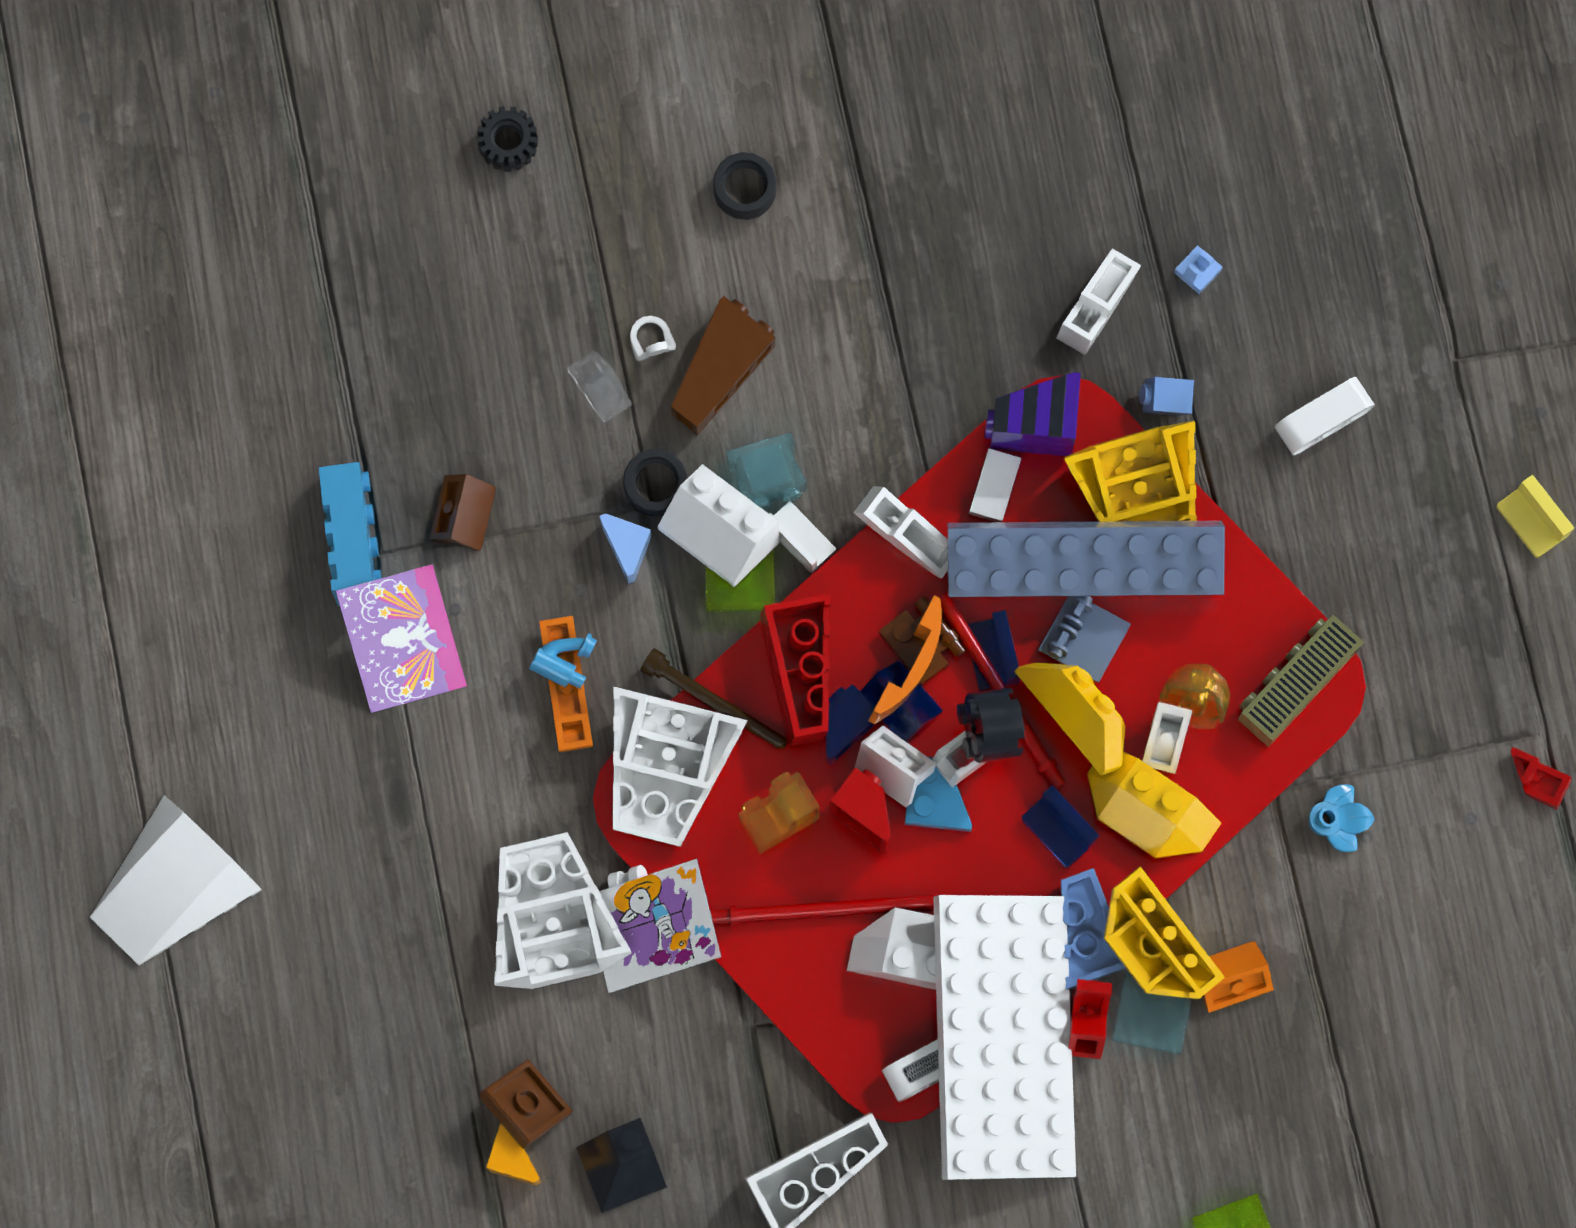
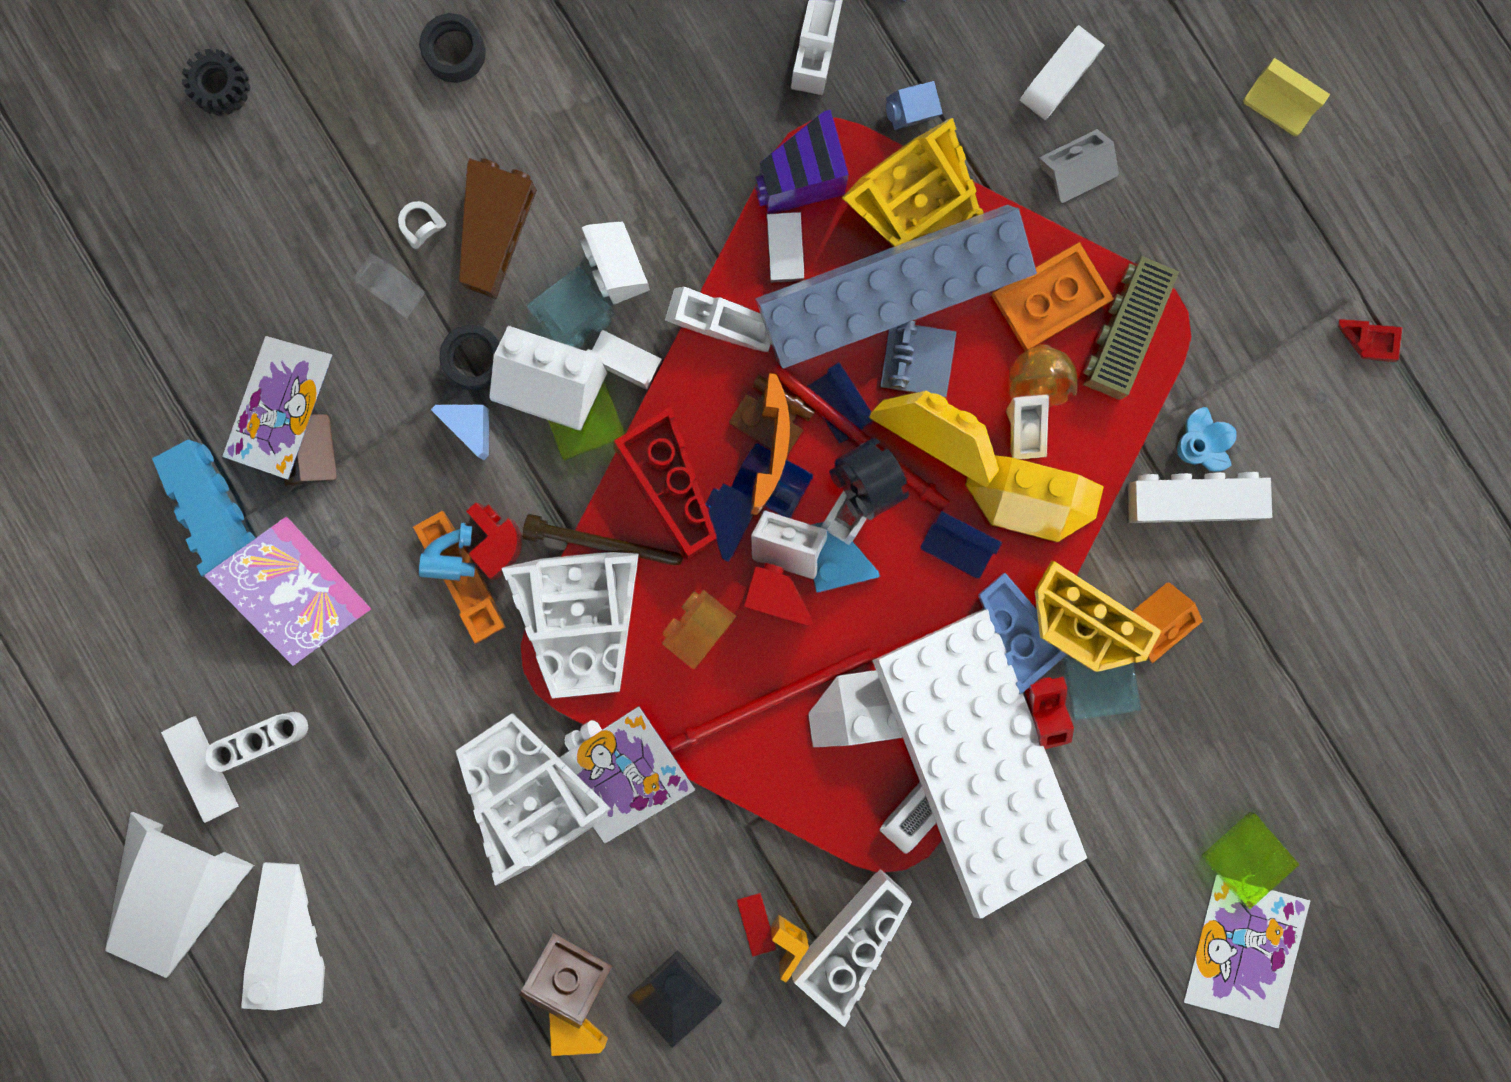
camera: 20 degrees left, 10 degrees up
(246, 778) = (206, 786): none -> white tile
(263, 976) = (282, 954): none -> white wedge
(298, 761) = (241, 745): none -> white beam
(452, 461) = (277, 406): none -> sticker
(616, 668) = (502, 544): none -> red brick
(727, 1125) = (756, 924): none -> red sticker
(760, 1142) = (791, 939): none -> light orange panel
(828, 440) = (617, 263): none -> white slope
(1236, 624) = (1053, 298): none -> orange plate
(1310, 869) = (1199, 499): none -> white brick
(1311, 510) = (1081, 165): none -> light grey panel

